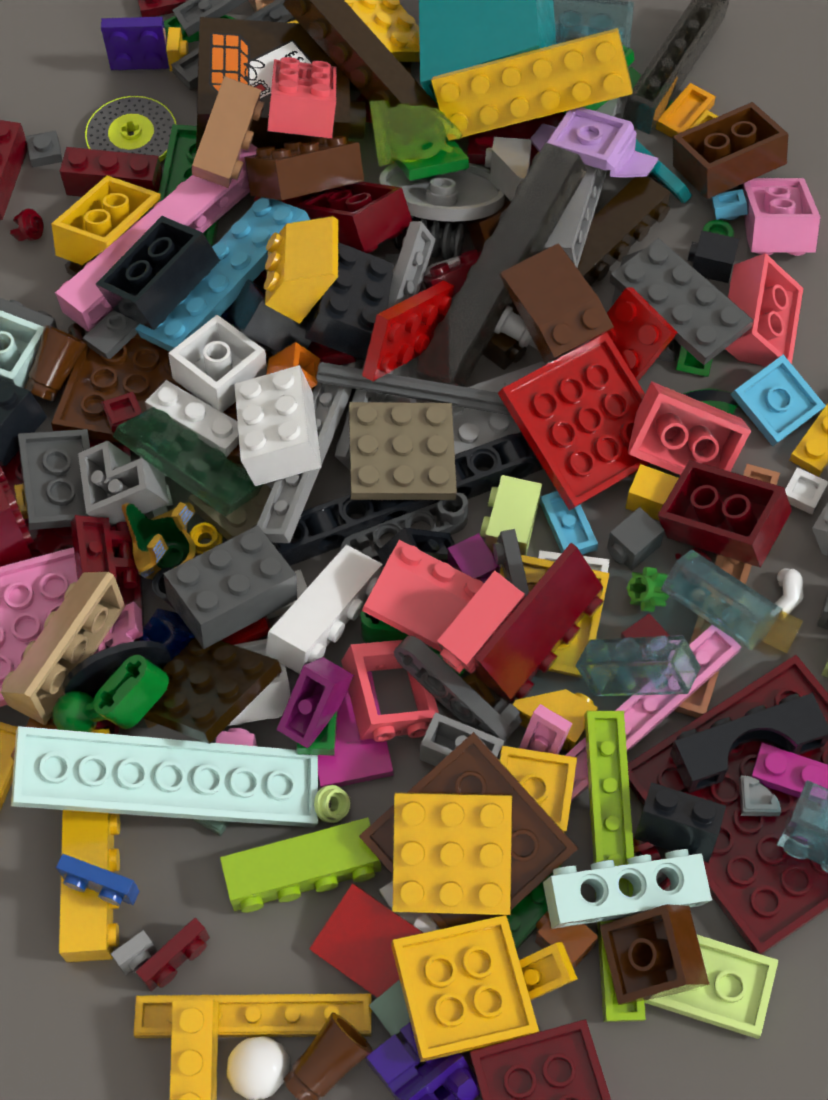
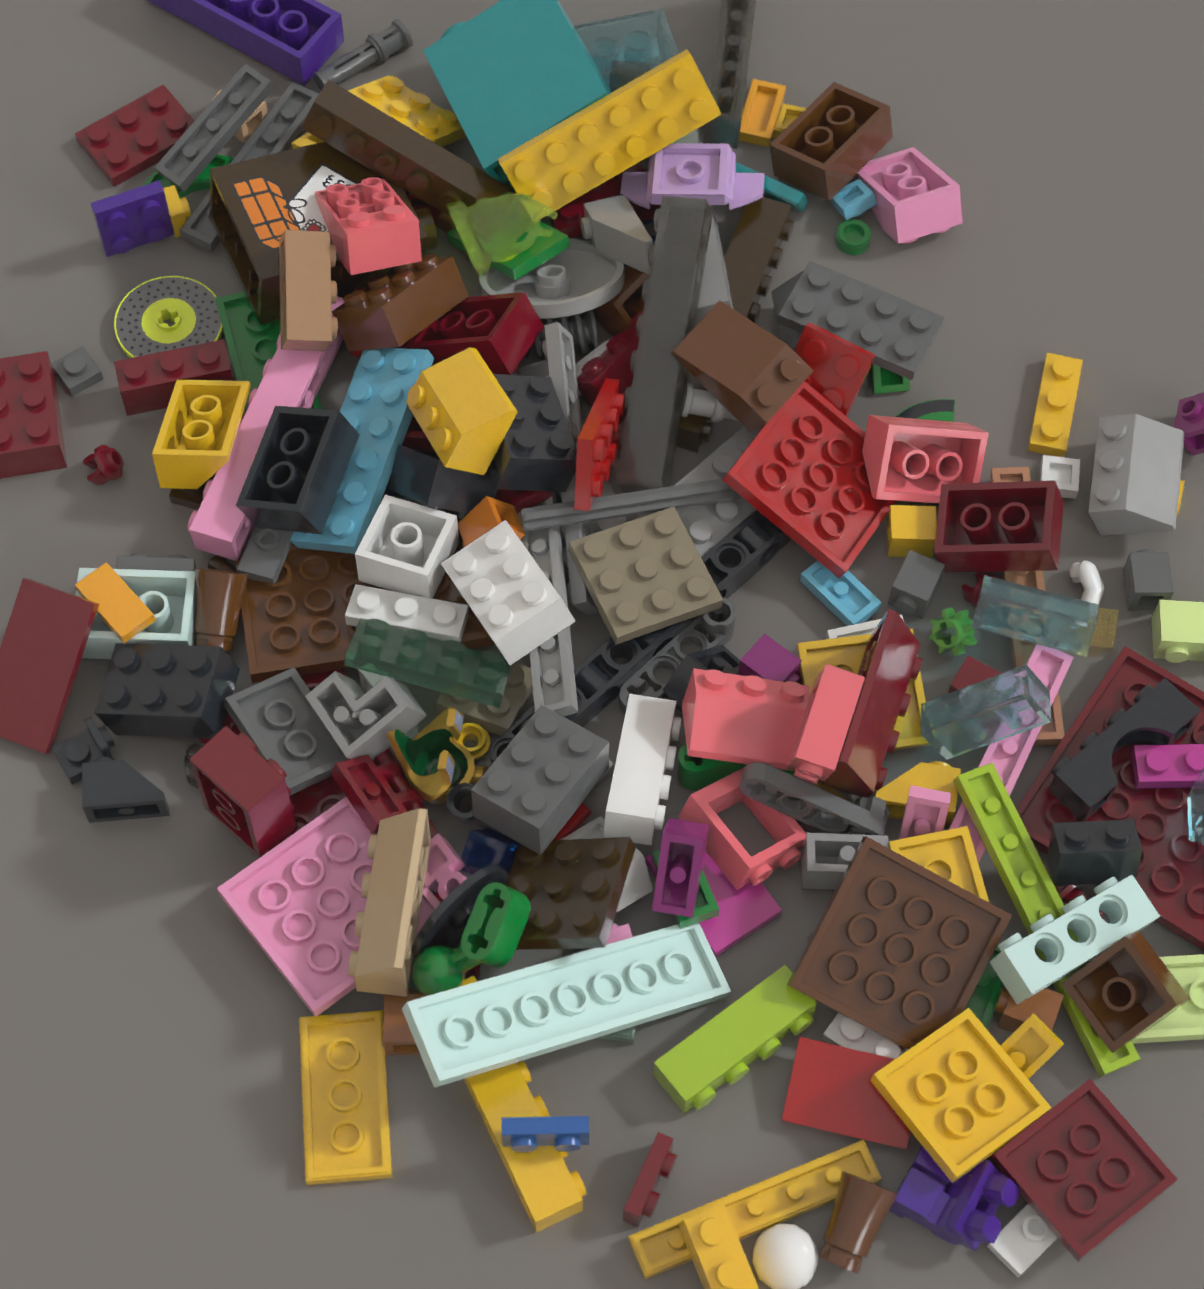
camera: 25 degrees left, 0 degrees up
(120, 409) = (324, 635): dark red tile -> none
(134, 953) = (609, 1194): light grey plate -> none
(339, 804) = (736, 966): yellowish green plate -> none
(391, 1009) = (896, 1144): sand green tile -> none
(452, 853) = (892, 966): yellow plate -> none
(508, 554) = (810, 646): dark grey plate -> none
(514, 507) = (781, 603): yellowish green brick -> none
(714, 255) = (863, 258): black brick -> none
(757, 799) = (1152, 803): light grey tile -> none
(773, 303) = (942, 287): coral slope -> none
(778, 400) = (993, 392): medium azure plate -> none

